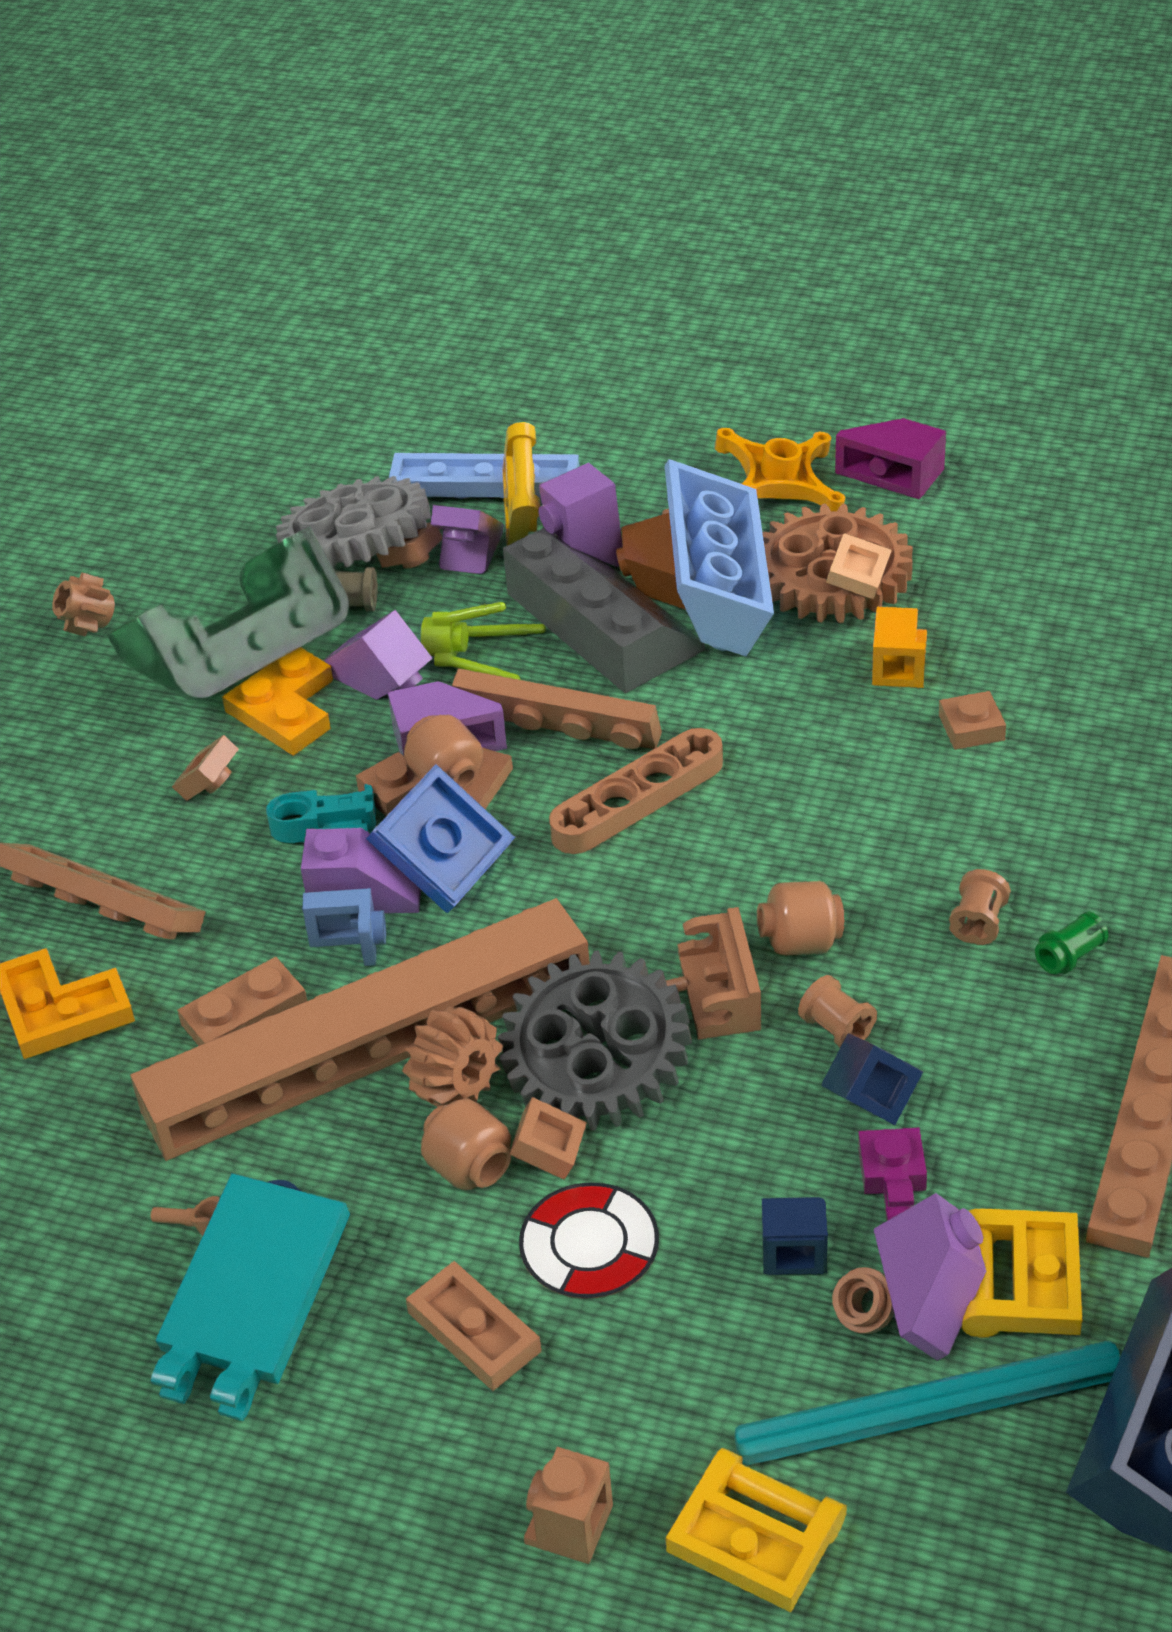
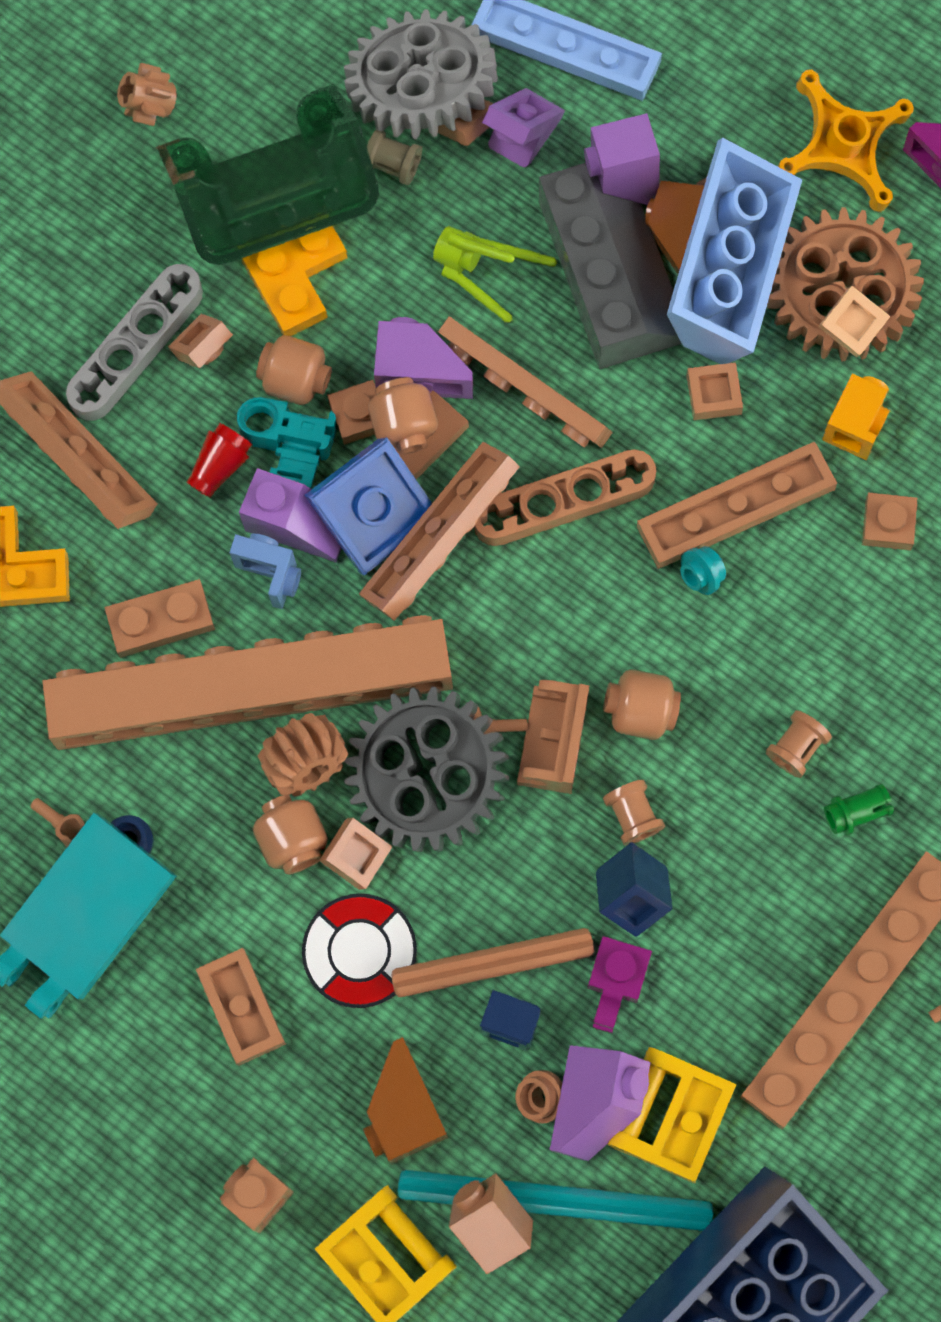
camera: 20 degrees right, 30 degrees up
(126, 791) = (128, 337): none -> light grey beam
(261, 851) = (218, 459): none -> red cone
(313, 759) = (293, 370): none -> nougat head
(380, 658) = (388, 260): medium lavender slope -> none
(518, 477) = (585, 86): yellow plate -> none
(519, 838) = (439, 530): none -> nougat plate
(713, 1362) = (402, 1109): none -> dark orange slope
(745, 1196) = (492, 962): none -> nougat axle
(748, 669) = (714, 391): none -> nougat plate
(813, 745) = (737, 504): none -> nougat plate
(816, 795) = (702, 570): none -> teal plate
(866, 1428) = (490, 1223): none -> nougat brick

